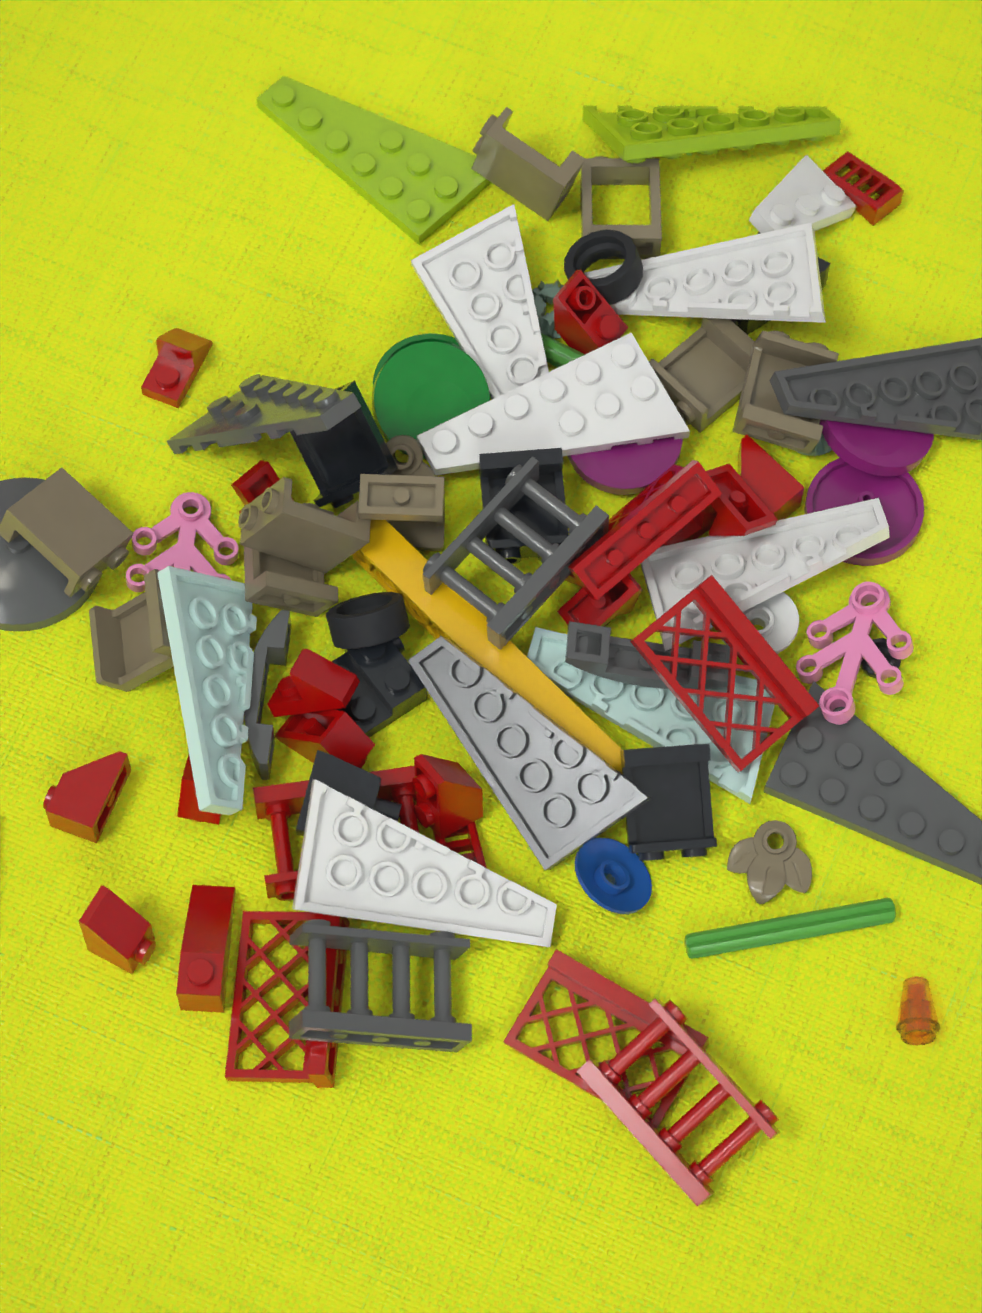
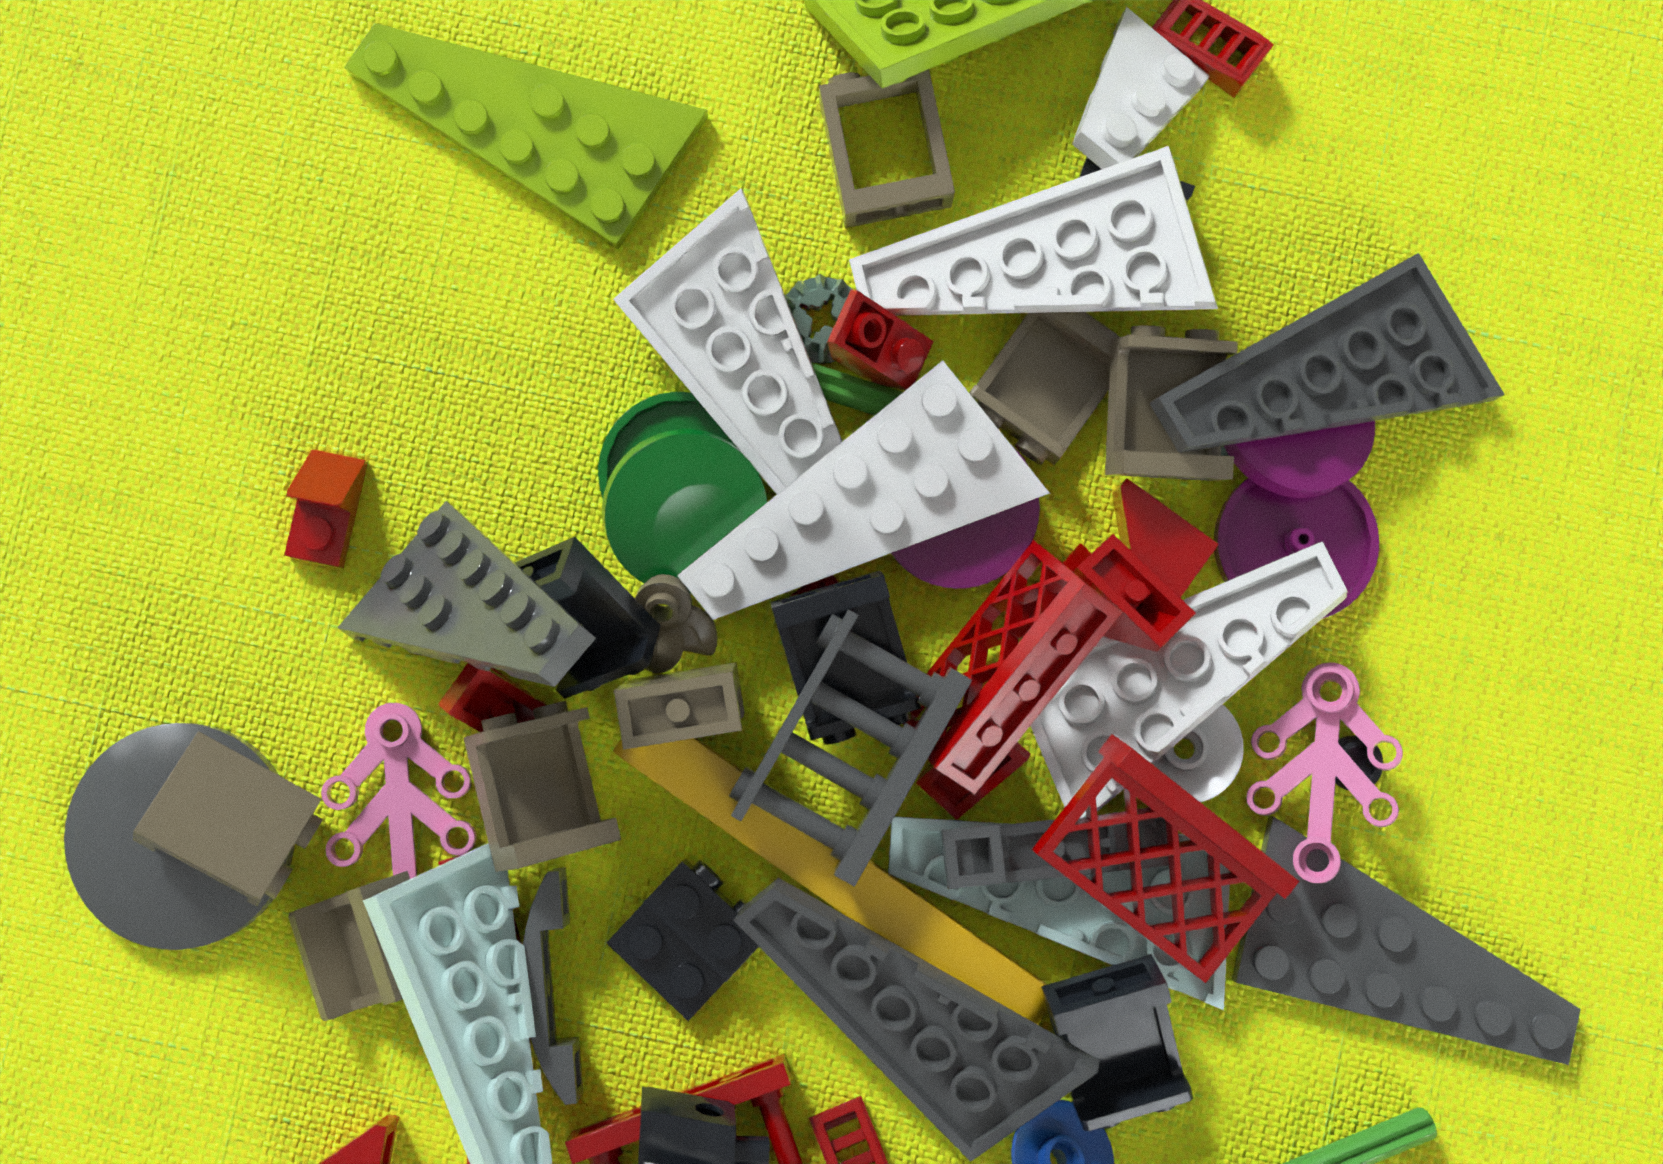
camera: 10 degrees left, 20 degrees up
(300, 532) = (497, 769): dark tan panel -> none
(313, 687) = (616, 979): red slope -> none
(328, 732) = (645, 1036): red slope -> none
(367, 620) = (678, 888): black tyre -> none
(445, 795) = (822, 1099): red slope -> none
(522, 169) = (740, 125): dark tan panel -> none
(604, 245) = (864, 223): black tyre -> none
(768, 867) = (1261, 1095): dark tan plate -> none

